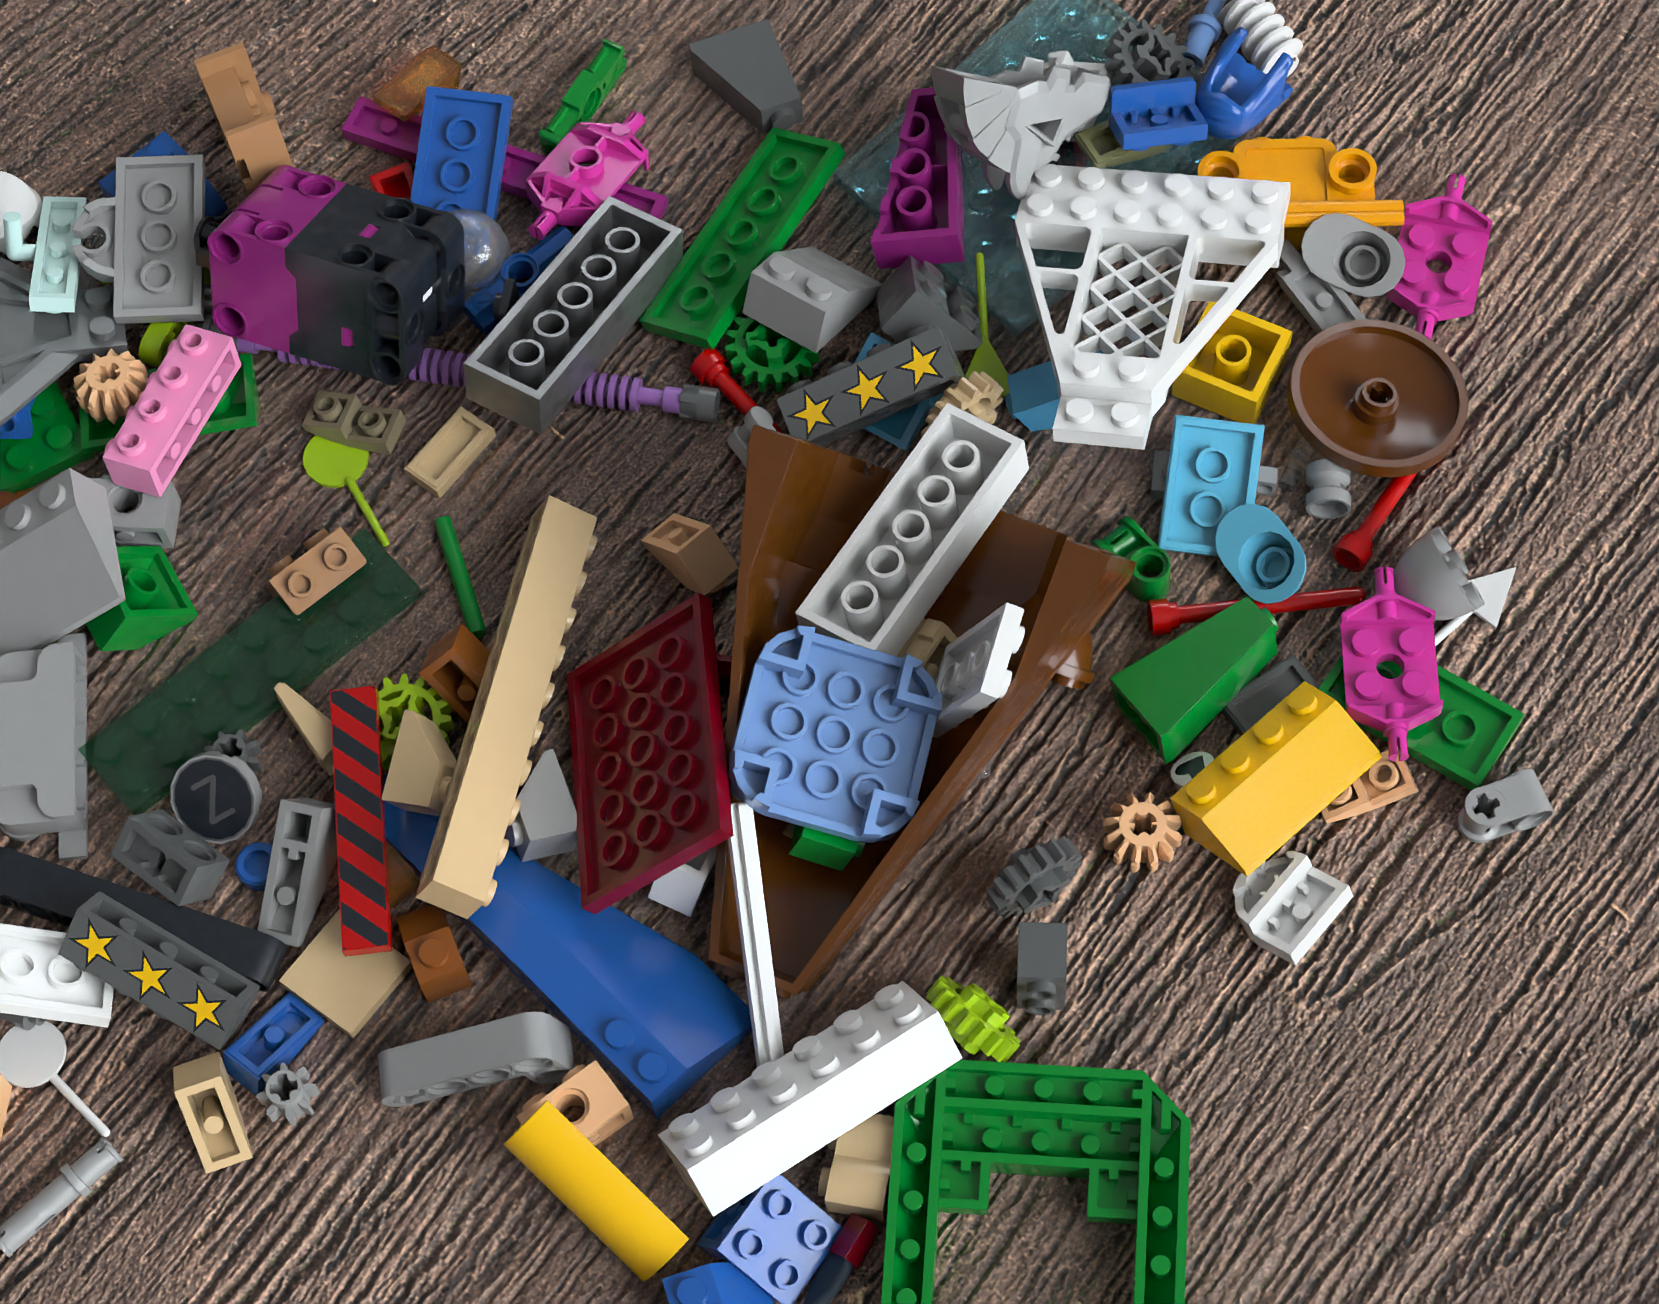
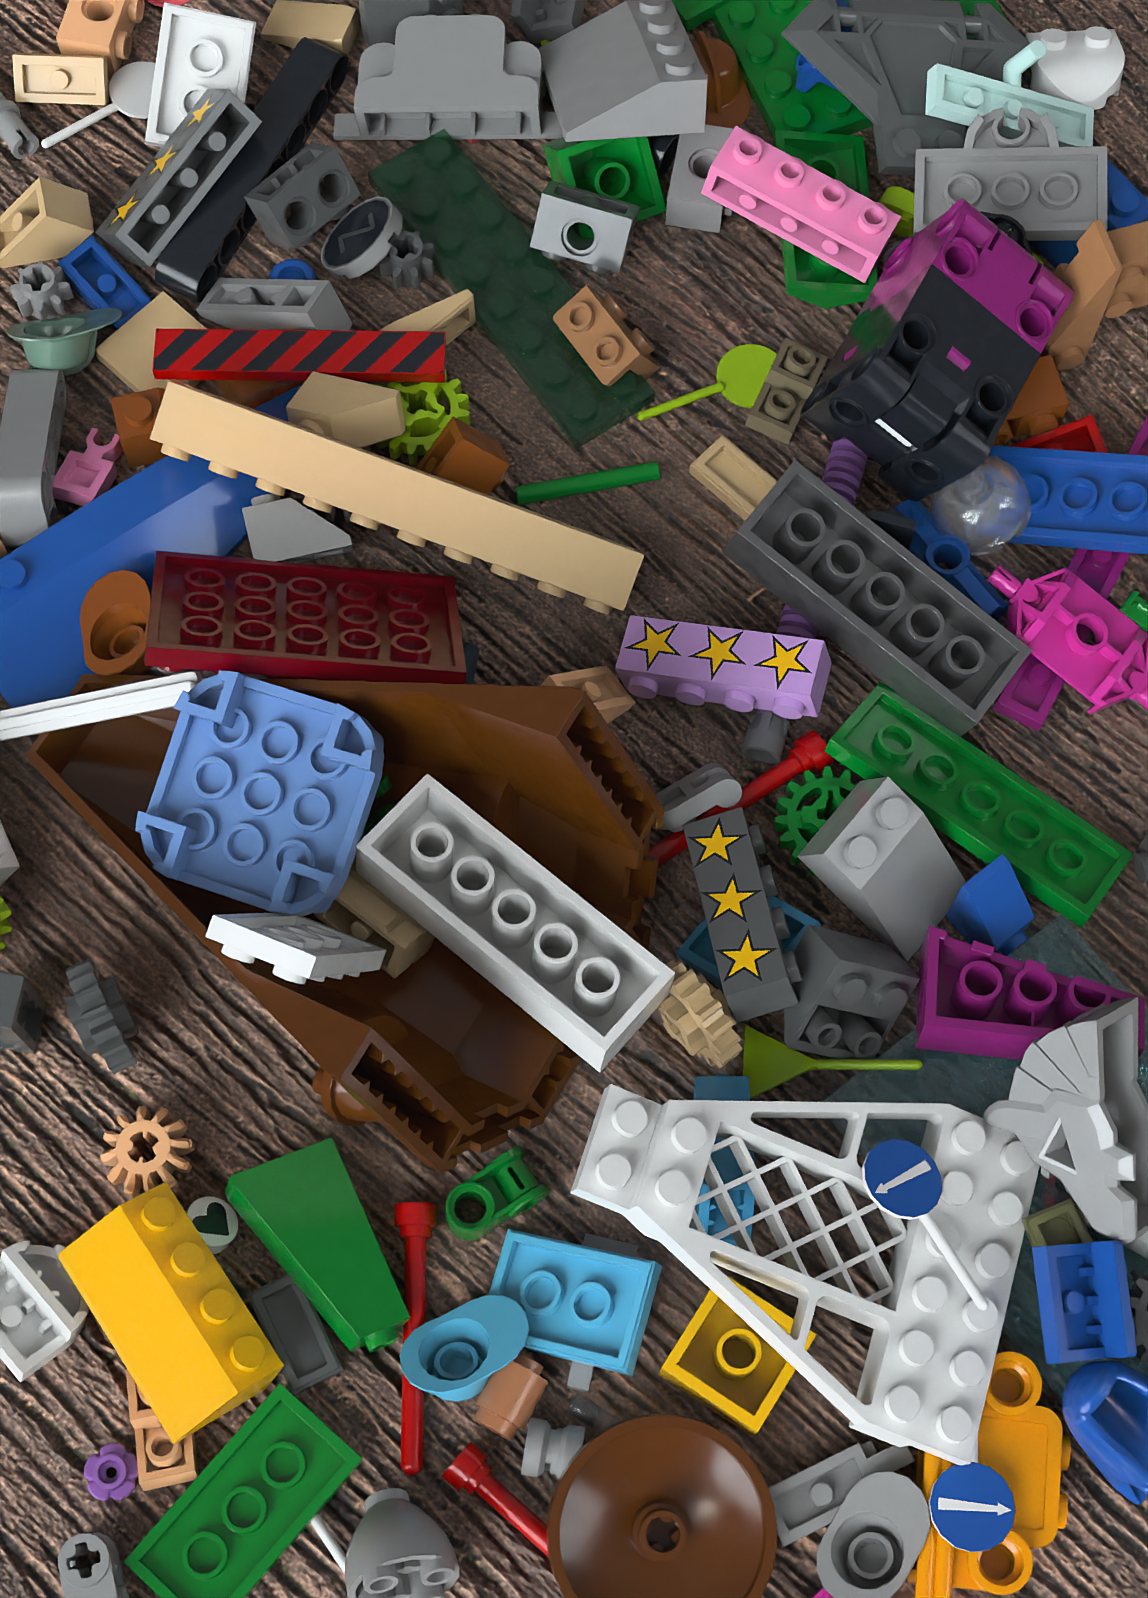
camera: 90 degrees right, 5 degrees up
(27, 1127) = (60, 78): none -> plate
(110, 385) = (841, 150): light nougat gear -> none
(195, 599) = (609, 218): none -> brick
(341, 1056) = (64, 341): none -> sand green piece
(486, 1006) = (87, 474): none -> bright pink plate
(645, 430) = (724, 666): none -> lavender brick
(659, 931) = (116, 624): none -> dark orange piece
(838, 219) = (993, 908): none -> blue slope
(1095, 234) = (908, 1186): none -> blue piece
(1301, 522) = (510, 1397): none -> nougat brick
(1319, 187) = (972, 1506): none -> blue piece
(1398, 632) = (239, 1467): dark pink plate -> none
(1406, 826) = (96, 1472): none -> medium lavender plate

